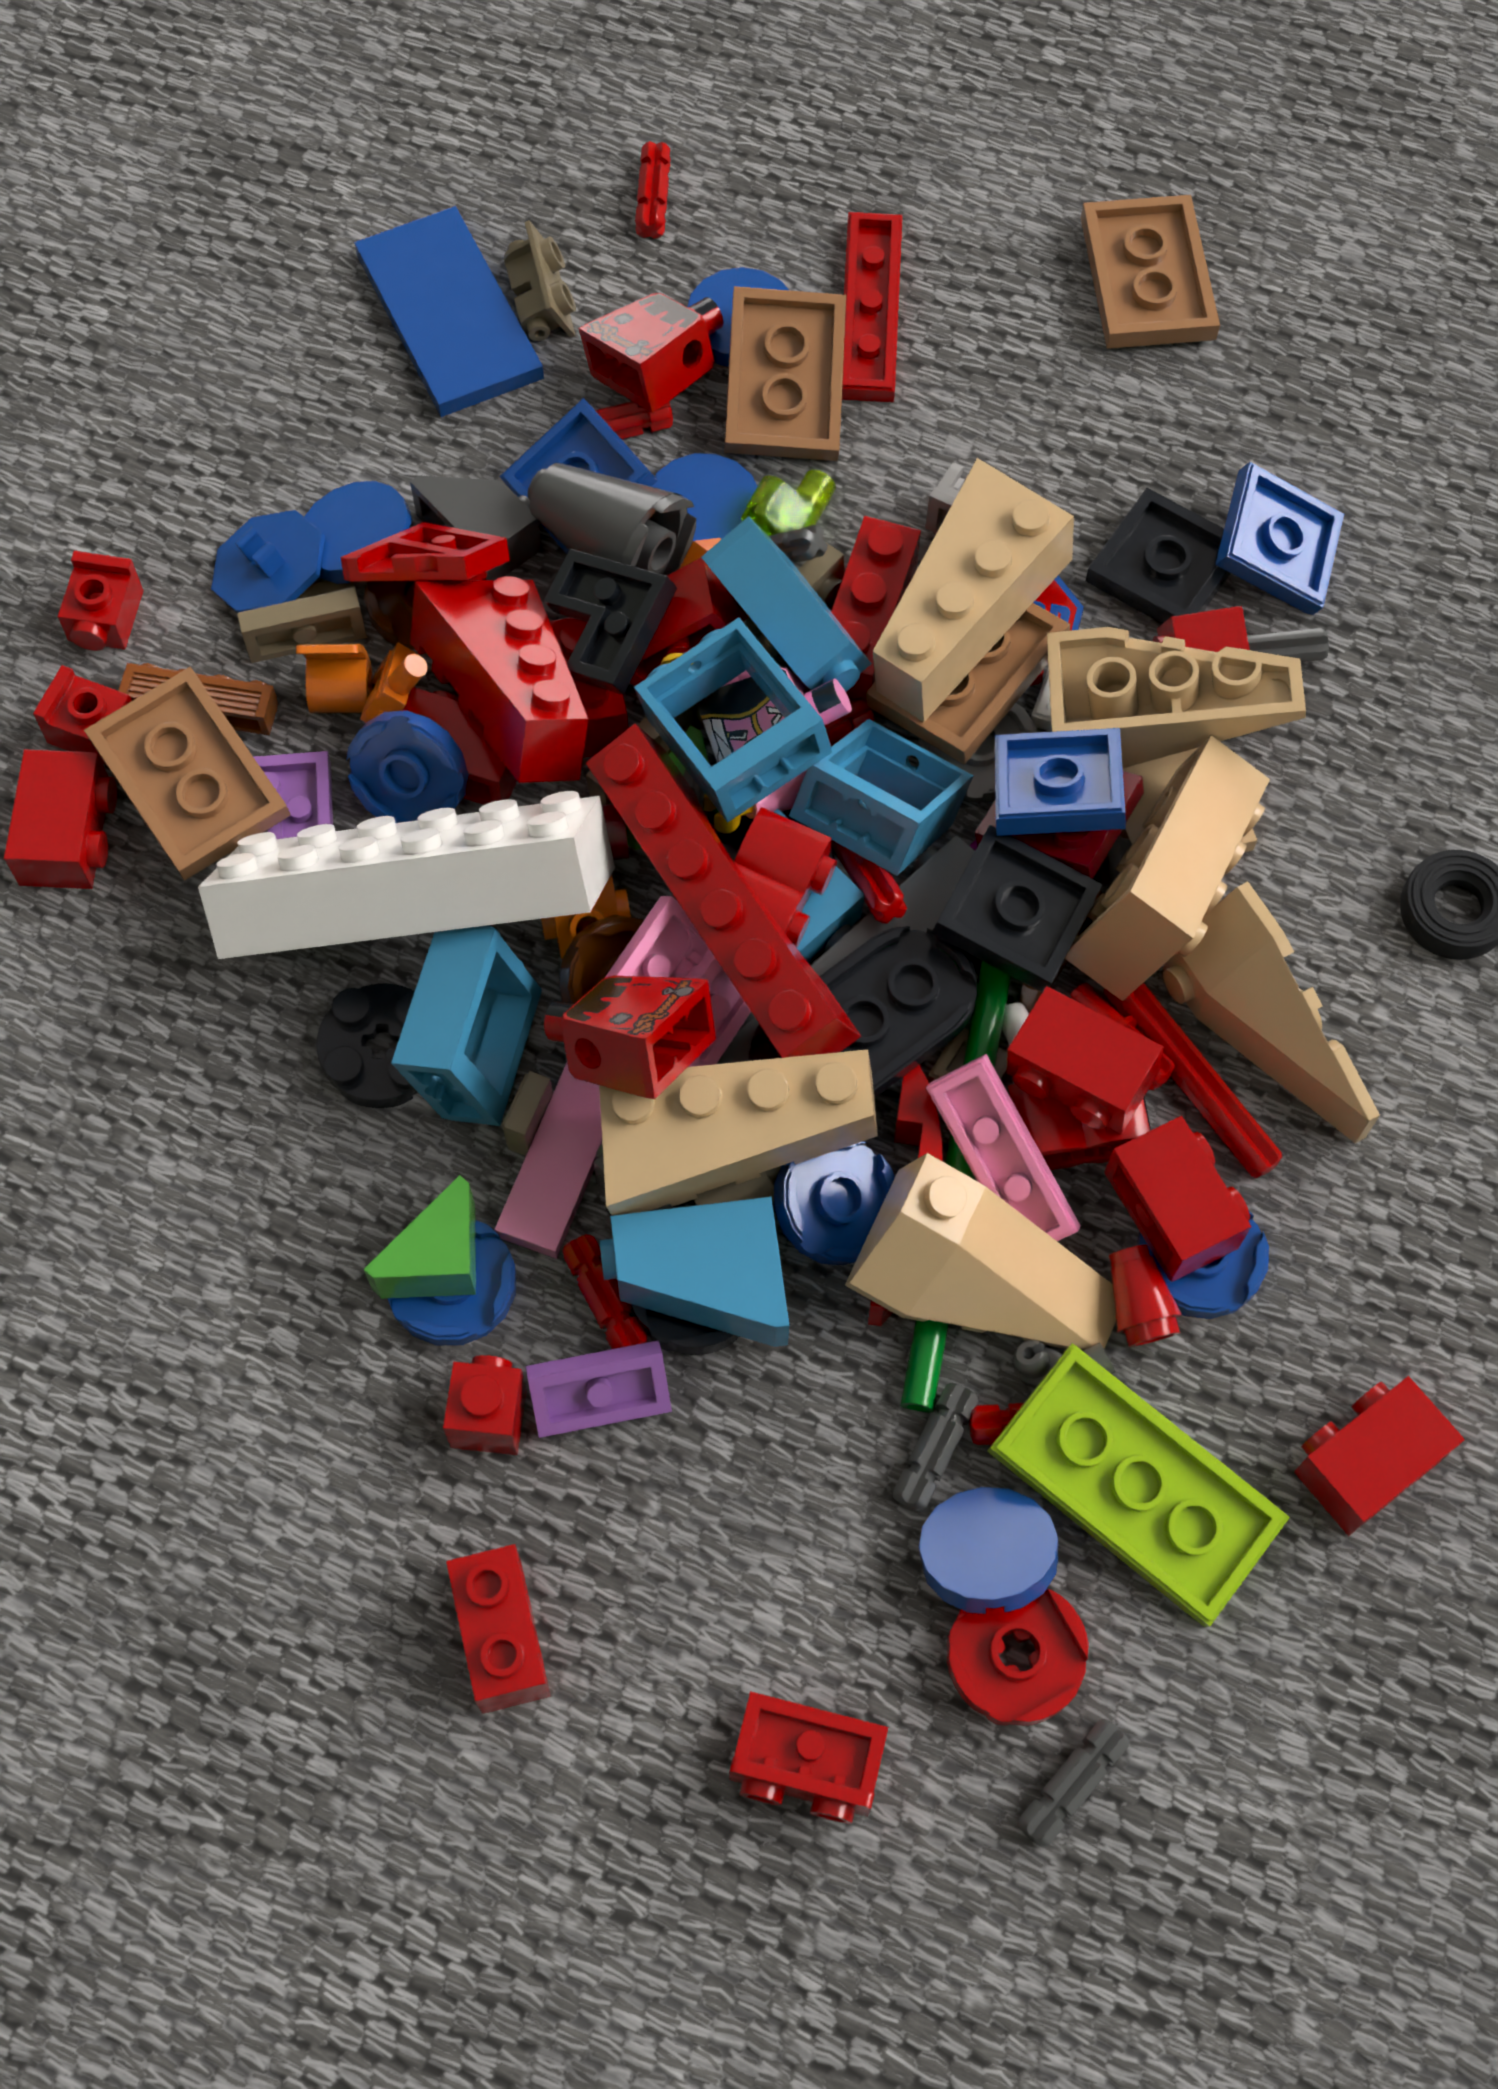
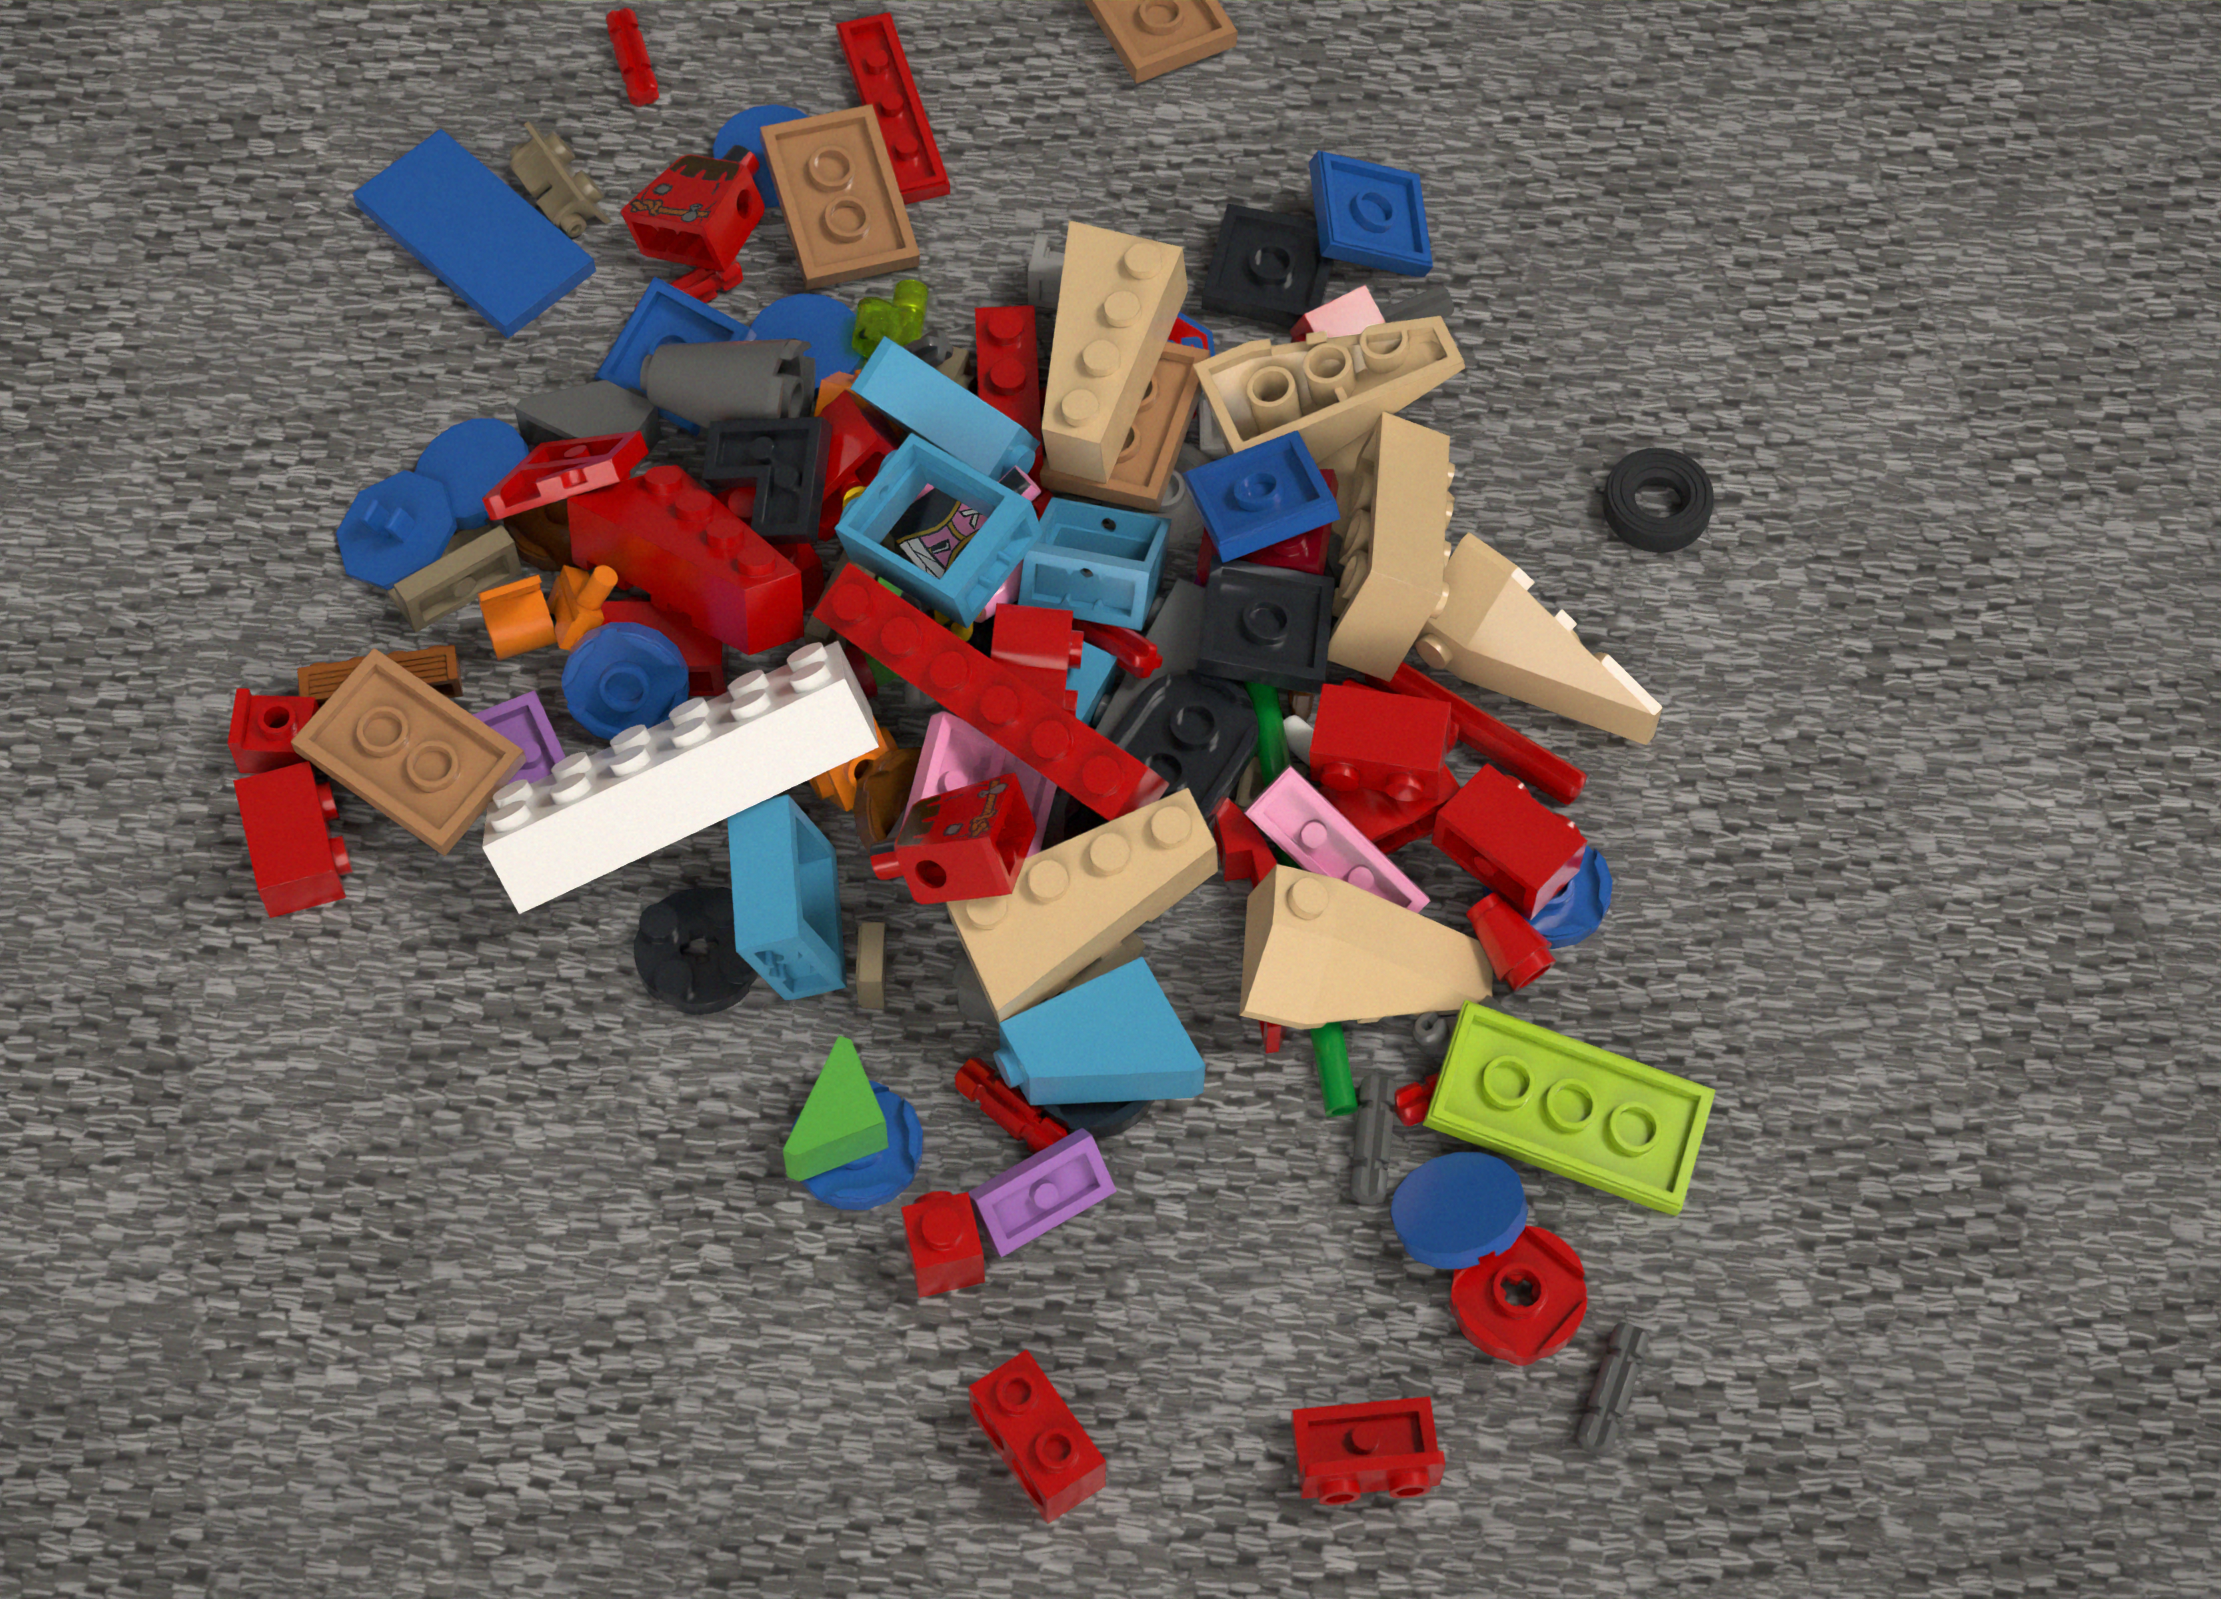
camera: 20 degrees left, 5 degrees down
(100, 601) = (241, 617): red brick -> none
(555, 1169) = (918, 999): bright pink tile -> none
(832, 1202) = (1196, 950): blue tile -> none
(1377, 1453) = (1771, 1008): red brick -> none

